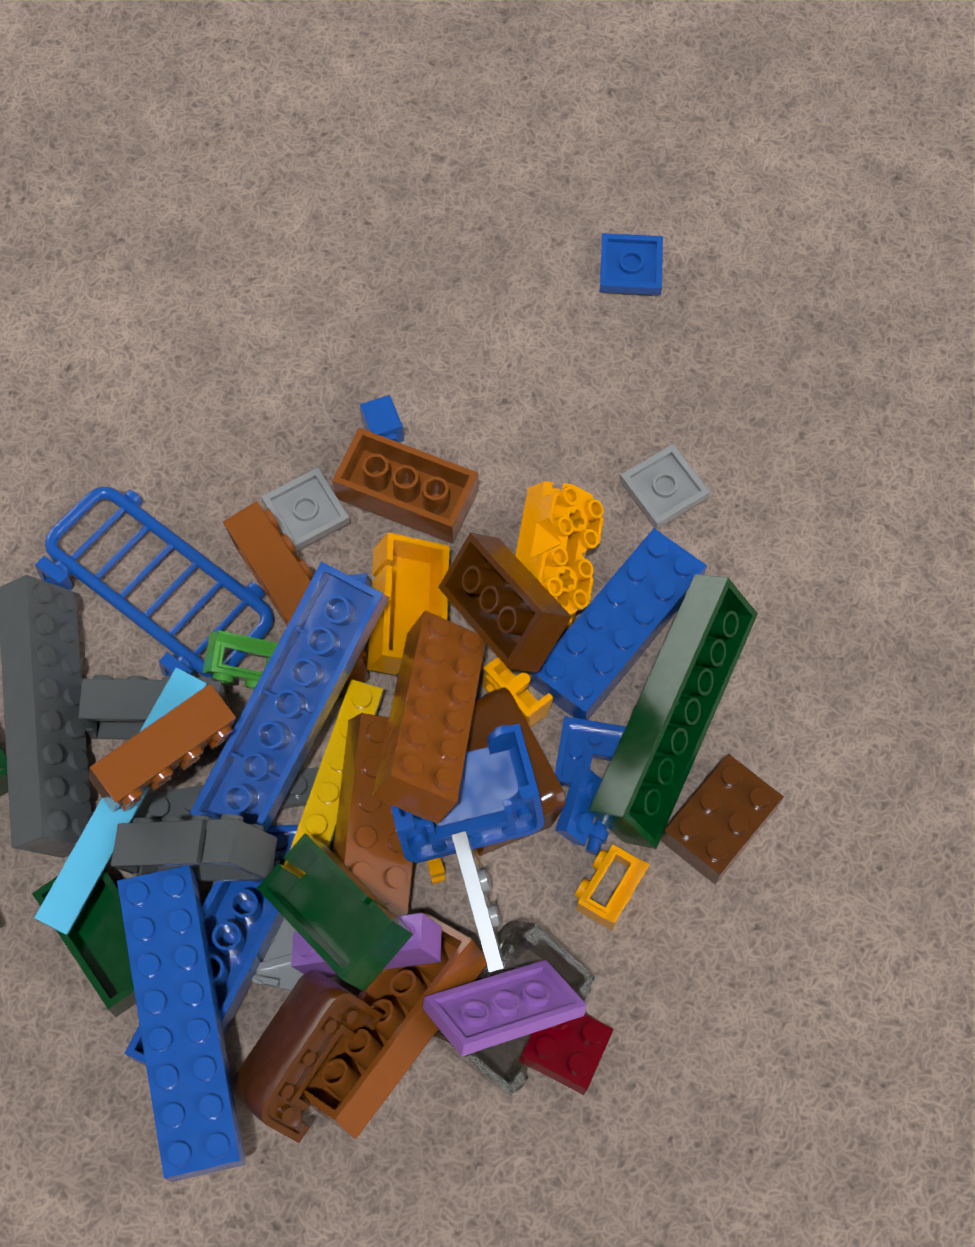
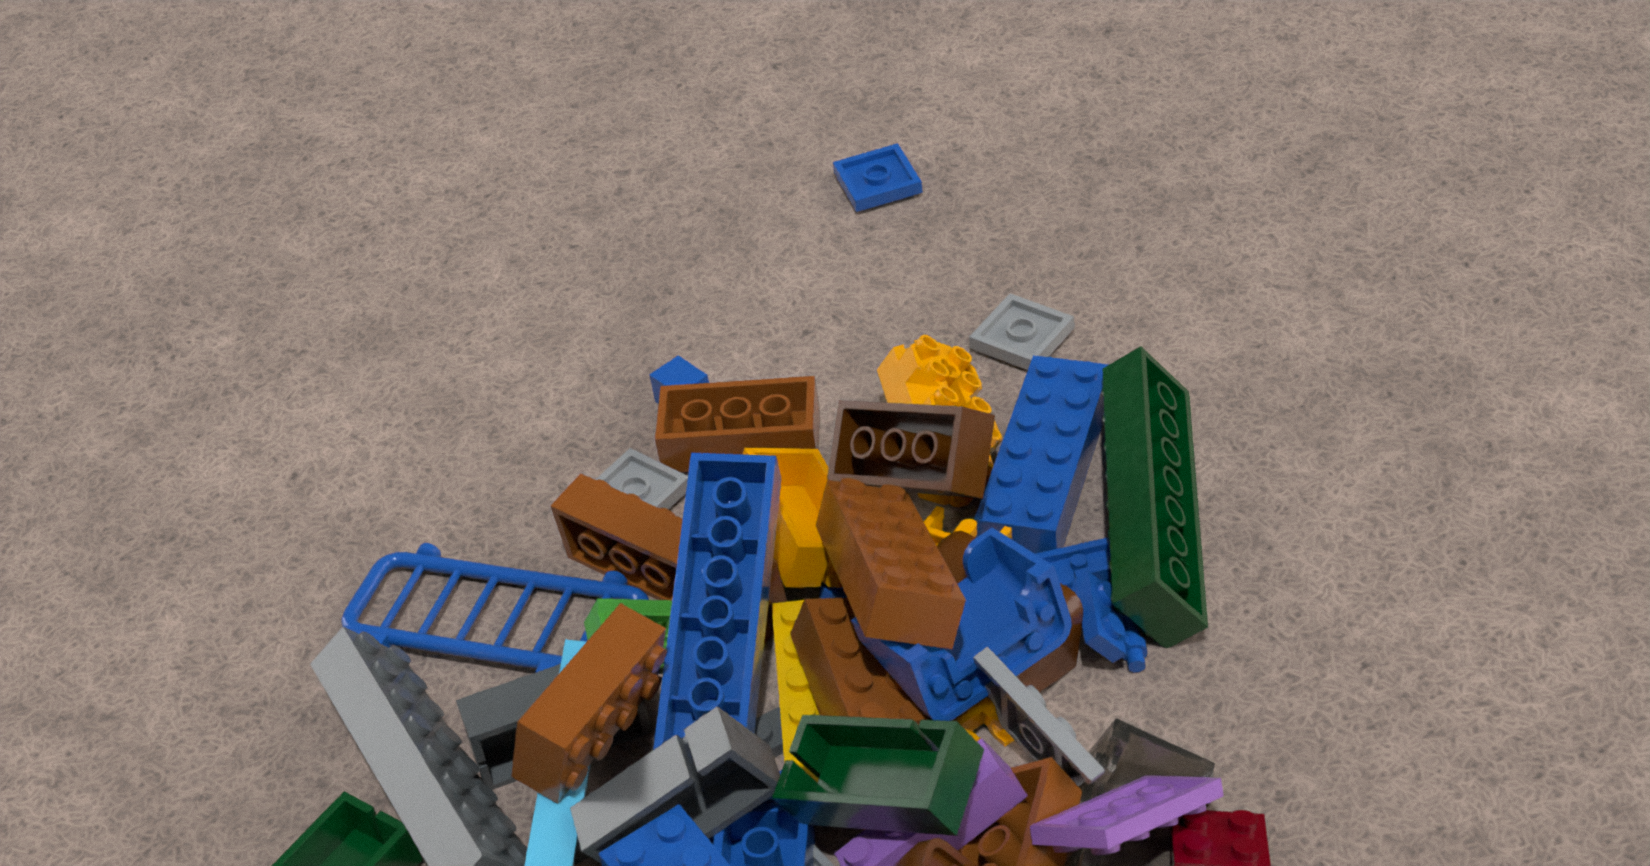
camera: 15 degrees left, 25 degrees down
(608, 915) = (1178, 711): light orange window -> none
(721, 818) = (1263, 576): reddish brown brick -> none

